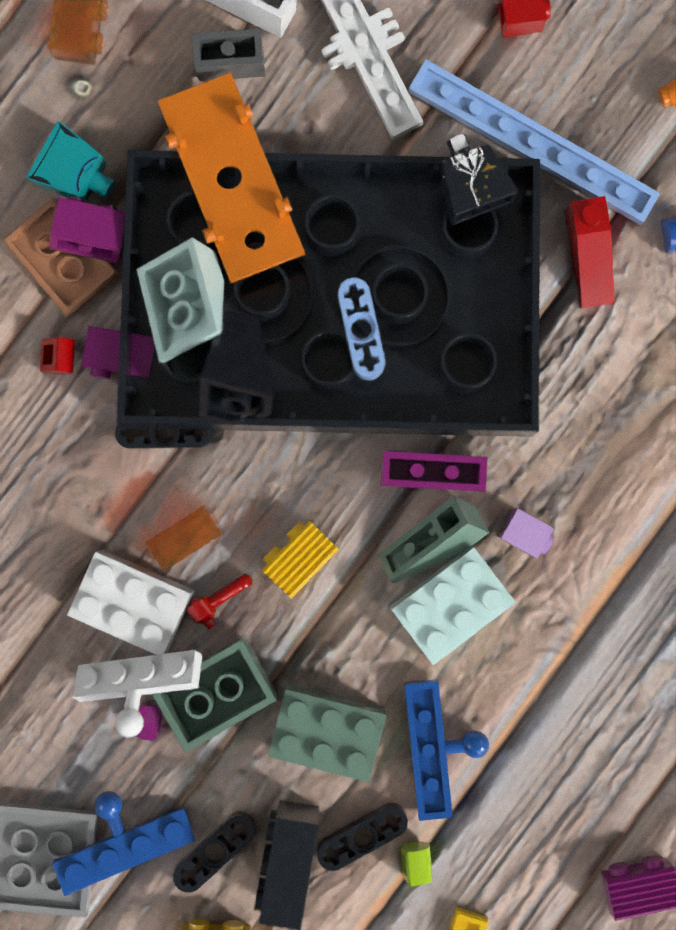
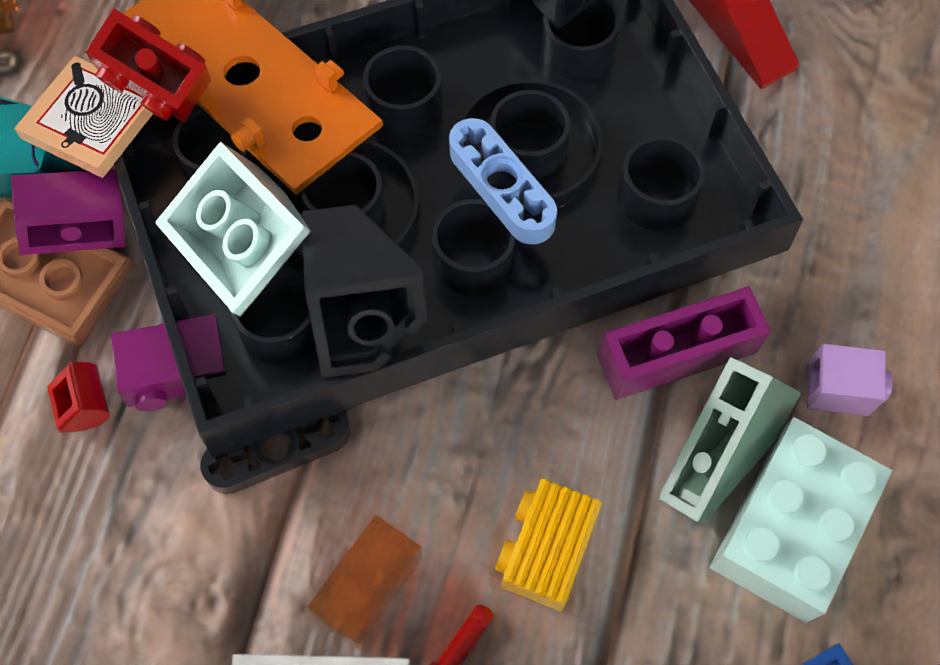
camera: 25 degrees left, 20 degrees down
(119, 172) = (84, 119): none -> tile
(165, 164) = (137, 58): none -> red brick

